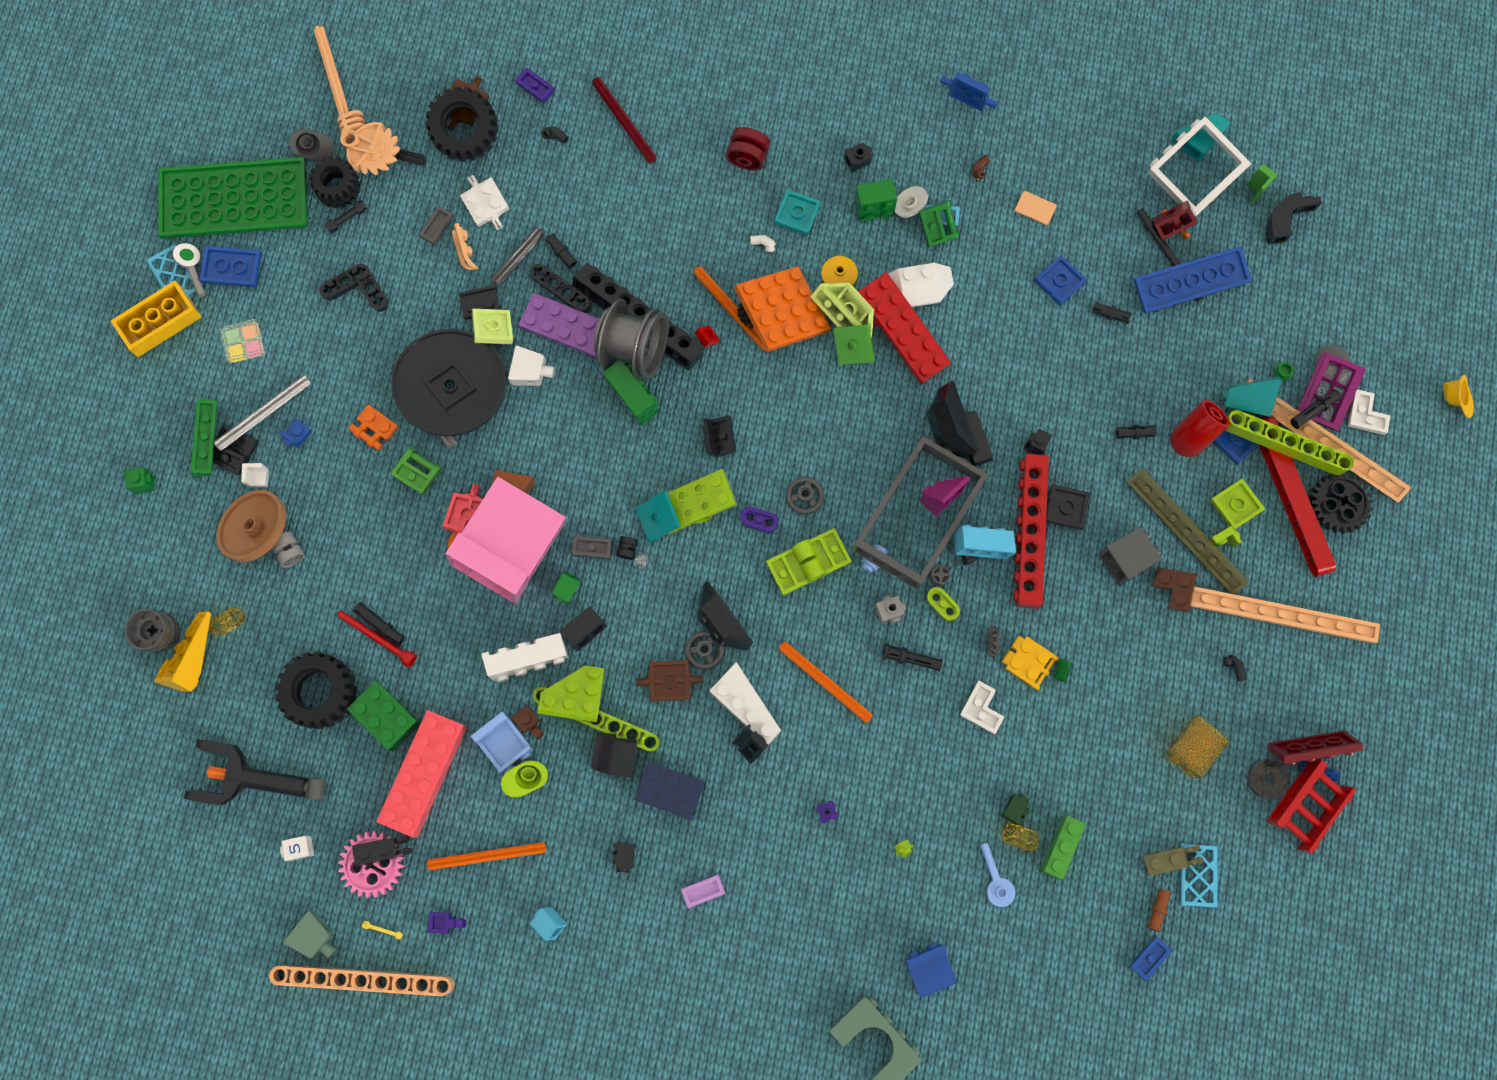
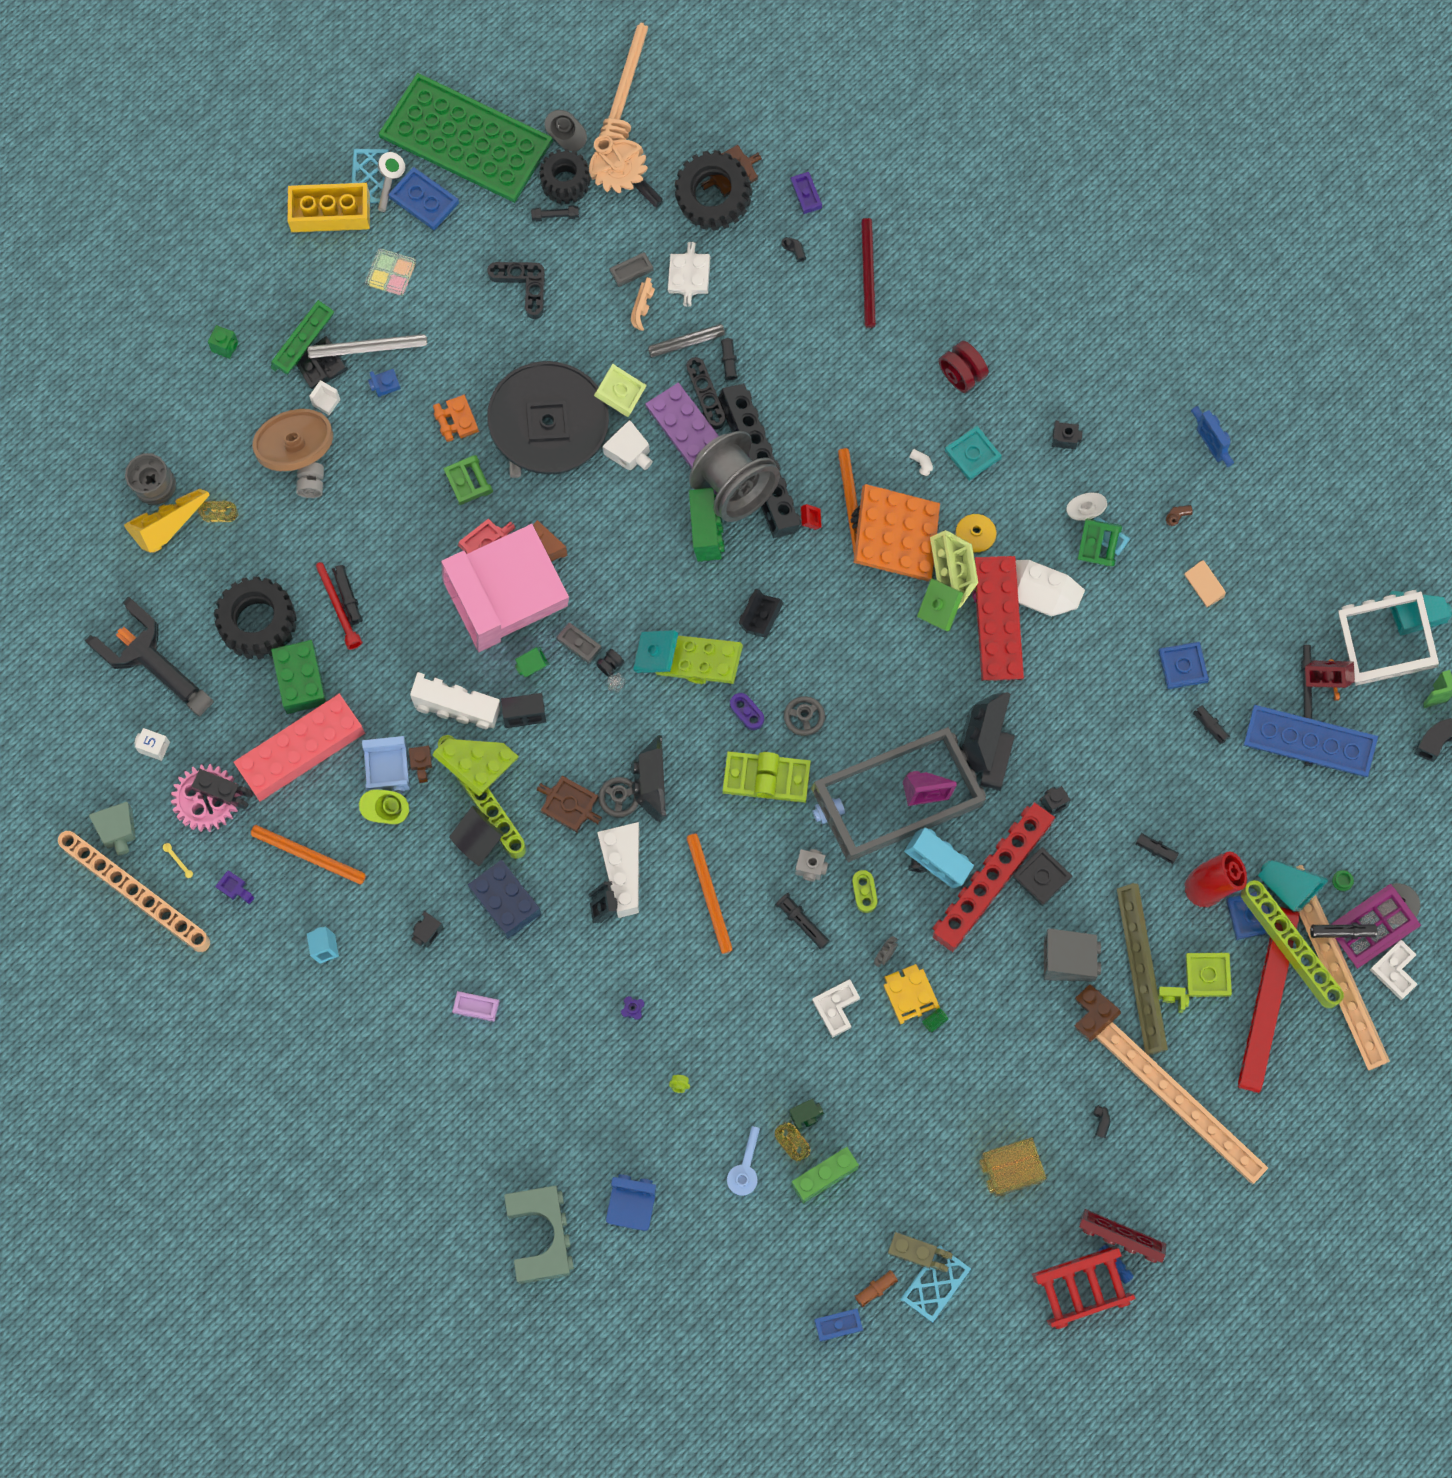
camera: 35 degrees right, 5 degrees down
(479, 299) = (627, 359): black plate -> none
(875, 200) = (1052, 484): green brick -> none
(941, 572) = (880, 860): dark grey wheel -> none
(1279, 781) = (1053, 1249): clear smoke plate -> none
(1341, 503) = (1327, 1026): black gear -> none

